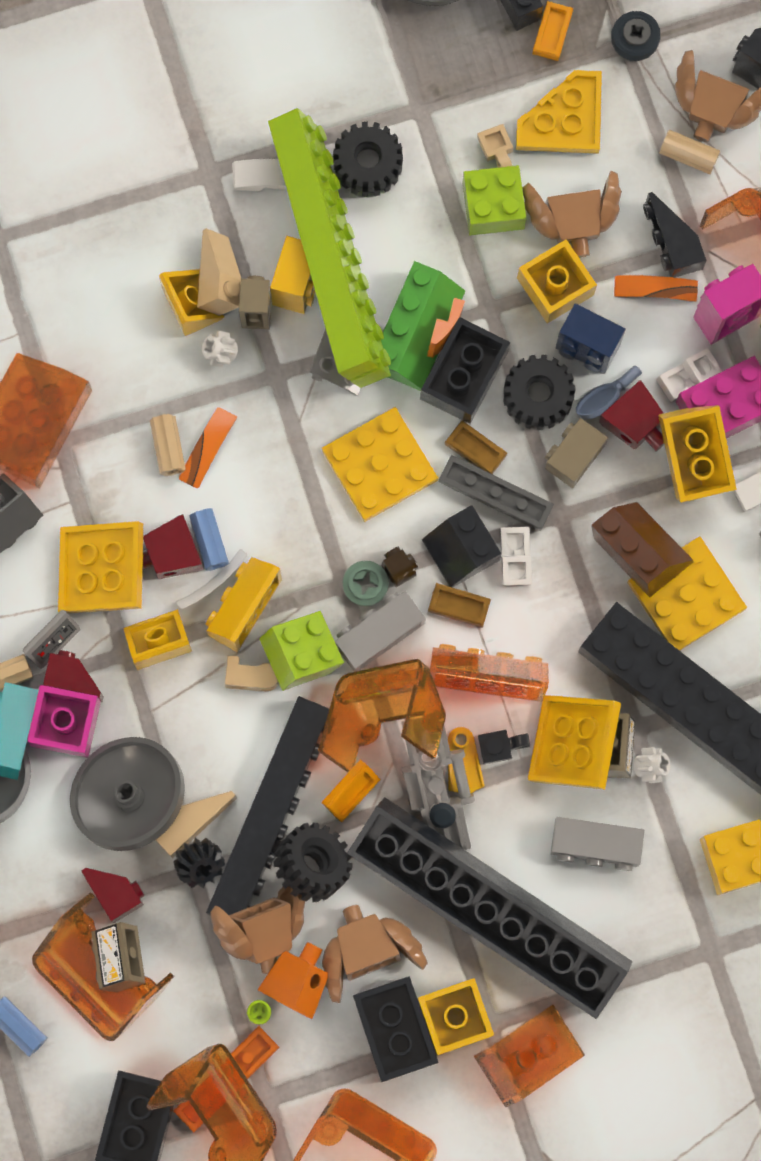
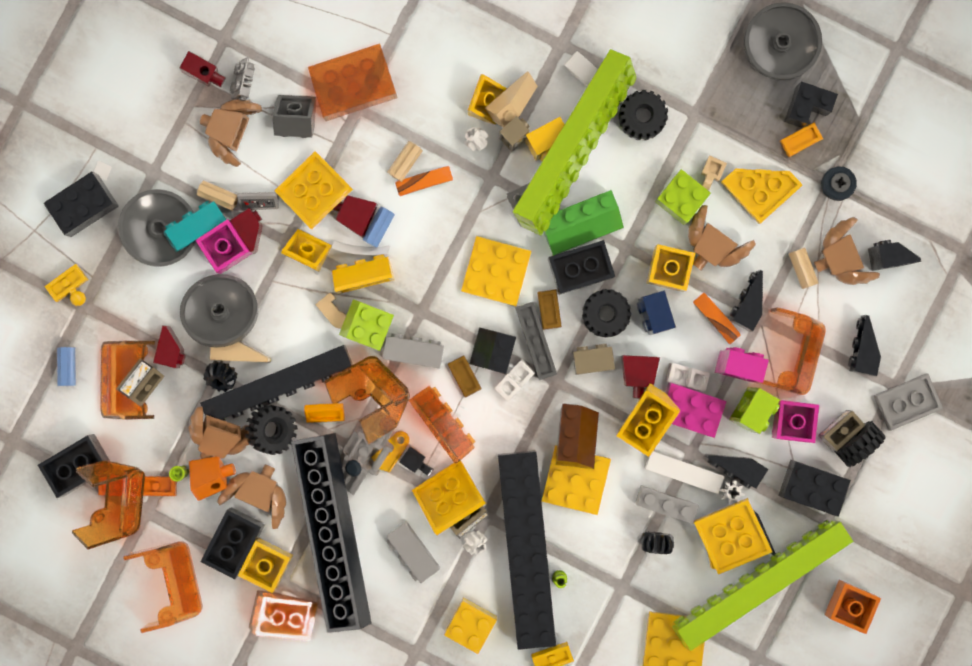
camera: 50 degrees right, 10 degrees up
(359, 571) = (421, 320): sand green gear -> none
(399, 566) = (454, 330): dark brown plate -> none
(444, 328) = (590, 238): orange slope -> none
(605, 395) = (634, 346): sand blue piece -> none

